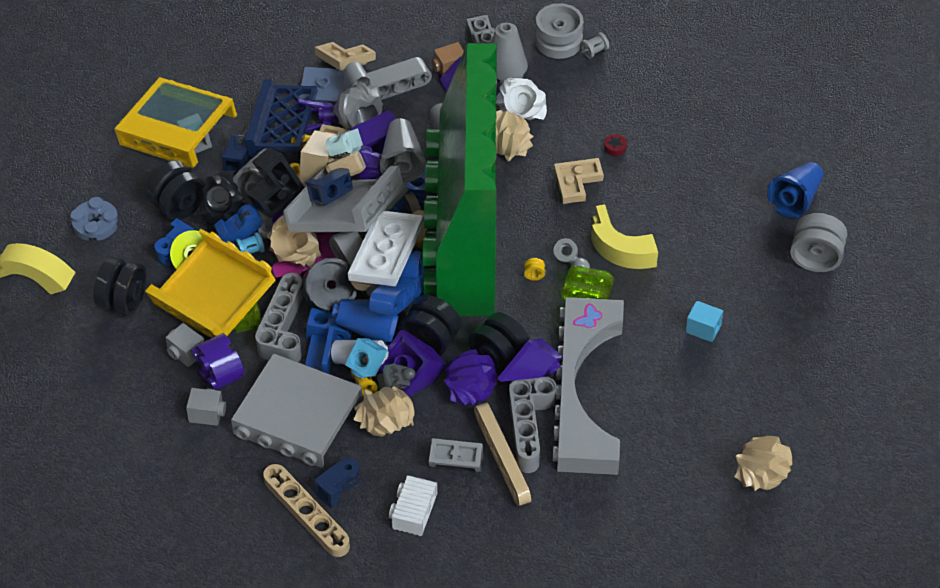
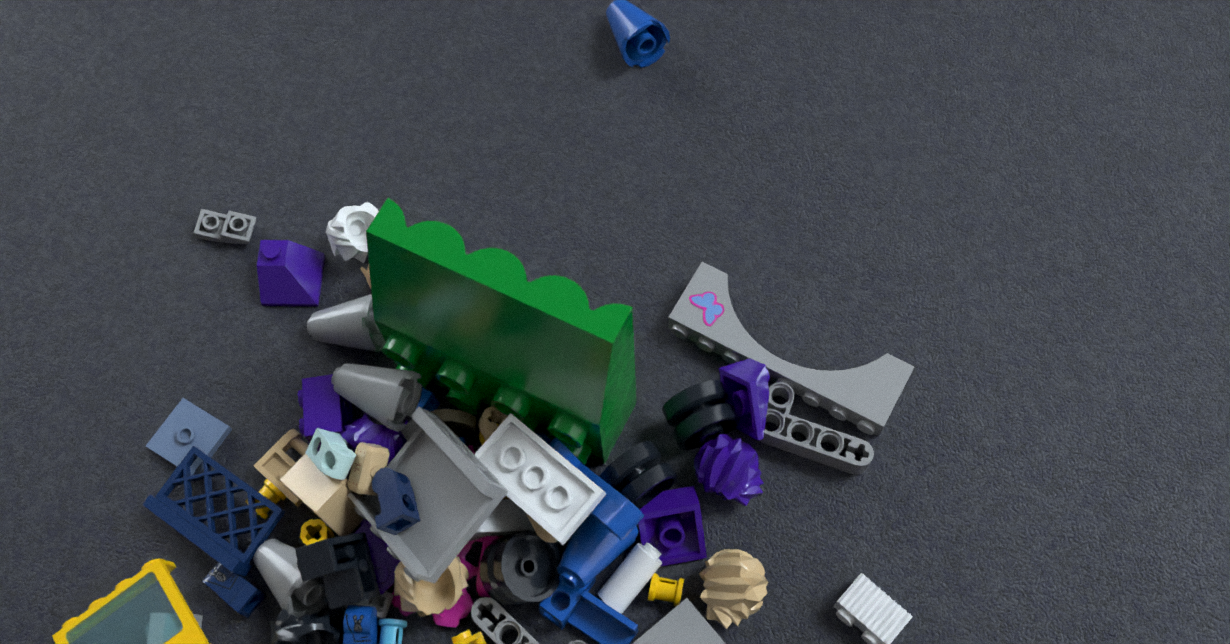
camera: 60 degrees left, 15 degrees up
(325, 113) = (236, 453): dark purple plant -> none
(342, 57) = (164, 395): tan plate -> none
(358, 105) = (257, 411): light grey hair -> none
(374, 353) = (654, 566): medium azure brick -> none
(390, 79) = (227, 388): light grey beam -> none
(395, 376) = (689, 552): dark grey piece -> none
(446, 57) = (242, 279): medium nougat brick -> none
(456, 454) = (826, 534): light grey hinge -> none
(502, 454) = (841, 482): tan beam -> none
(510, 52) = (281, 215): light grey cone -> none
(559, 31) = (279, 146): light grey wheel -> none
(572, 257) = (617, 284): light grey plate -> none
(573, 174) = (490, 228): tan plate -> none
(587, 283) = (652, 274): clear neon green brick -> none
(588, 46) = (318, 122): light grey bush -> none
(615, 145) = (469, 170): dark red tile -> none
(622, 250) = (614, 235): light yellow arch -> none
(704, 321) = (761, 198): medium azure panel -> none
(763, 463) = (972, 232): tan hair -> none
(819, 242) = (721, 46): light grey wheel -> none

